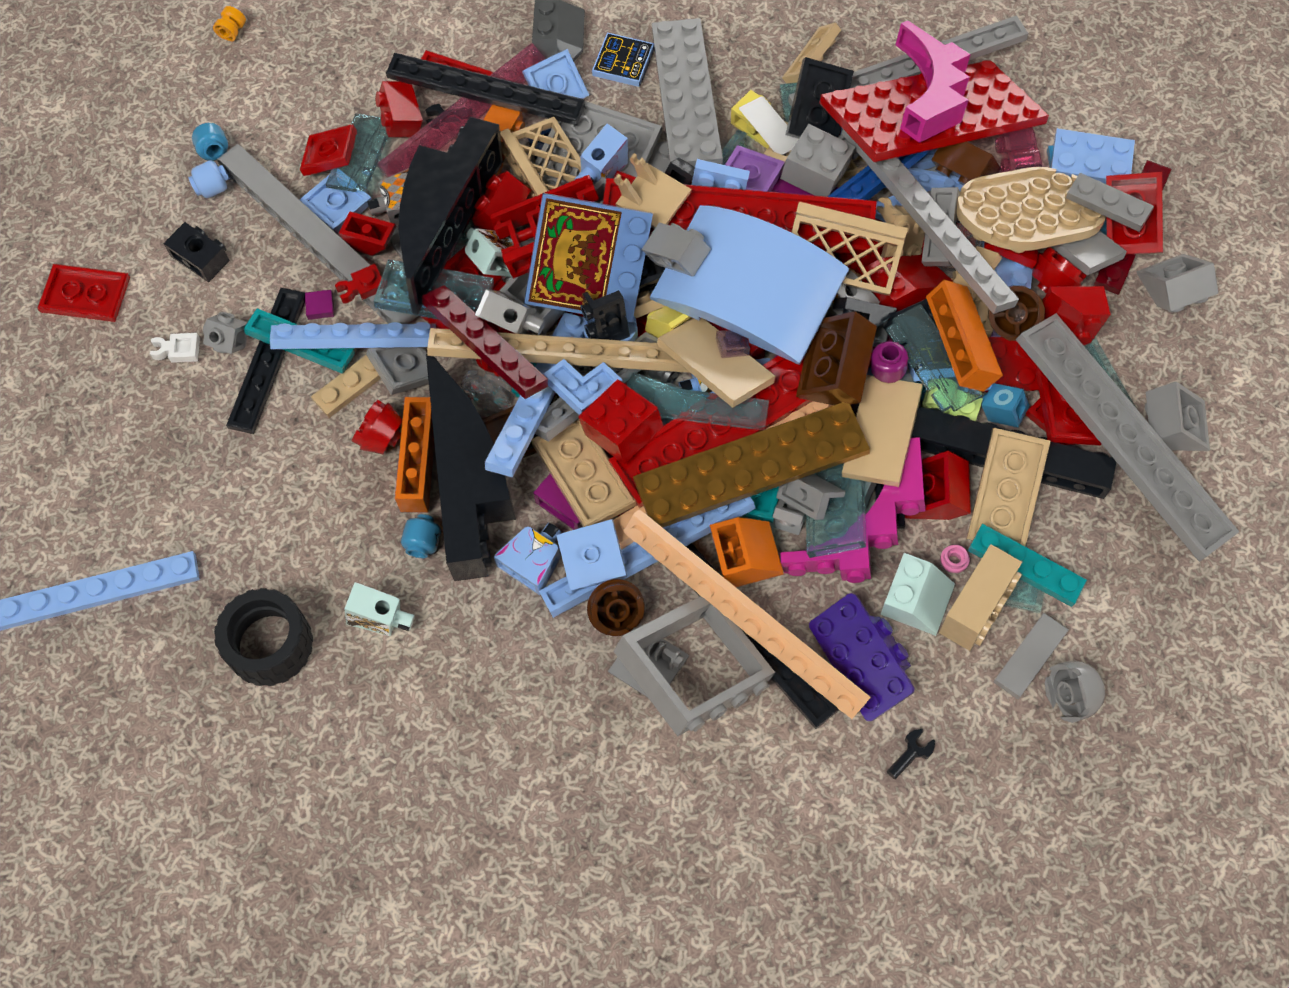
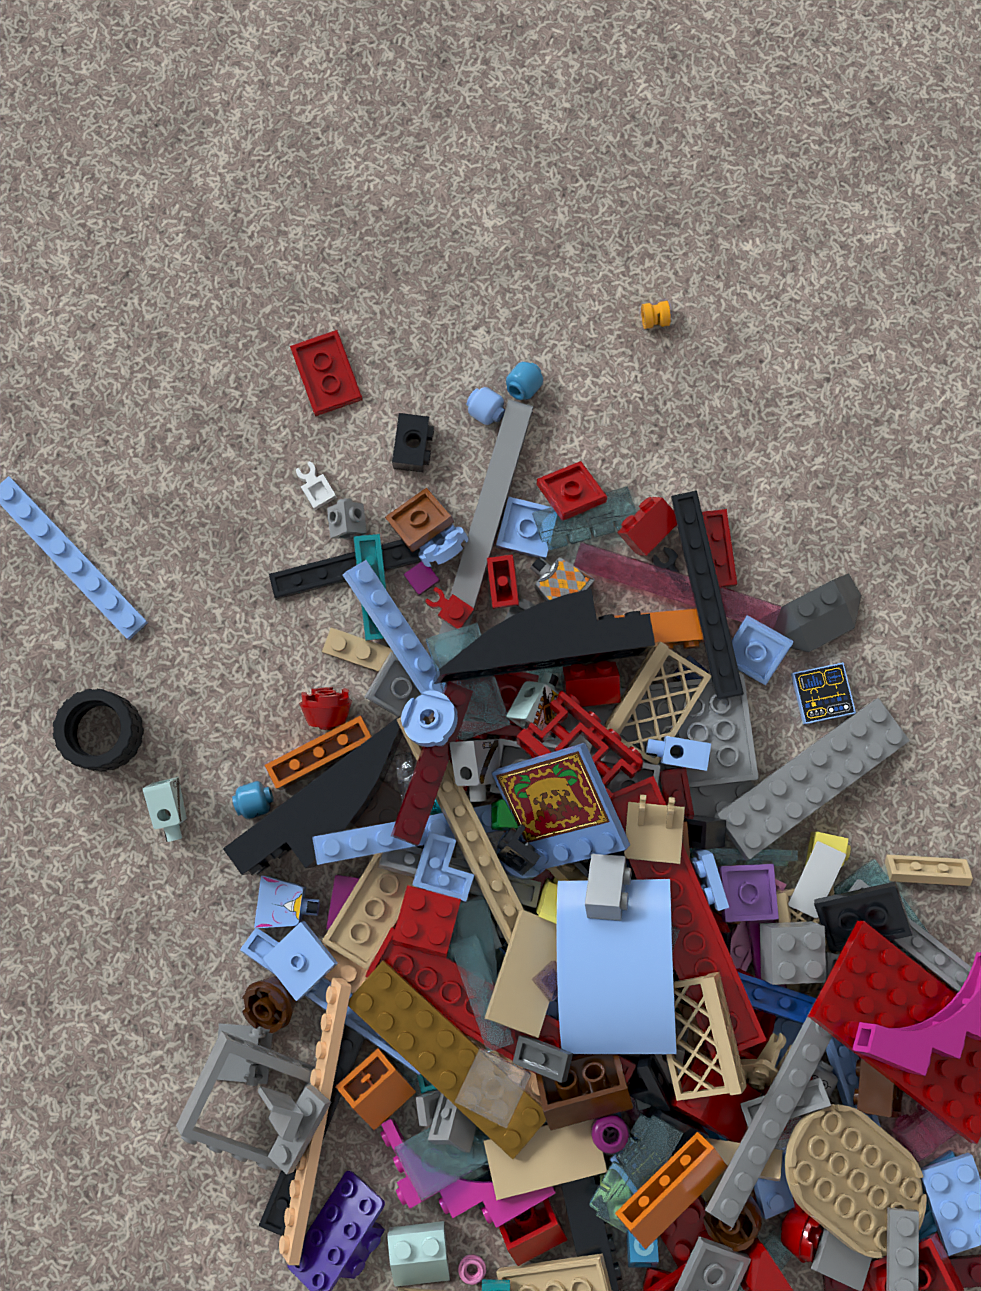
camera: 55 degrees right, 15 degrees up
(267, 275) = (419, 519): none -> dark orange plate
(302, 263) = (443, 546): none -> light blue plate
(456, 324) = (436, 732): none -> light blue plate
(568, 321) = (502, 817): none -> green slope
(719, 624) = (284, 1112): none -> light grey panel
(743, 624) = (313, 1106): none -> light grey plate
(794, 378) = (542, 1058): none -> dark grey plate
(797, 430) = (493, 1087): none -> clear plate

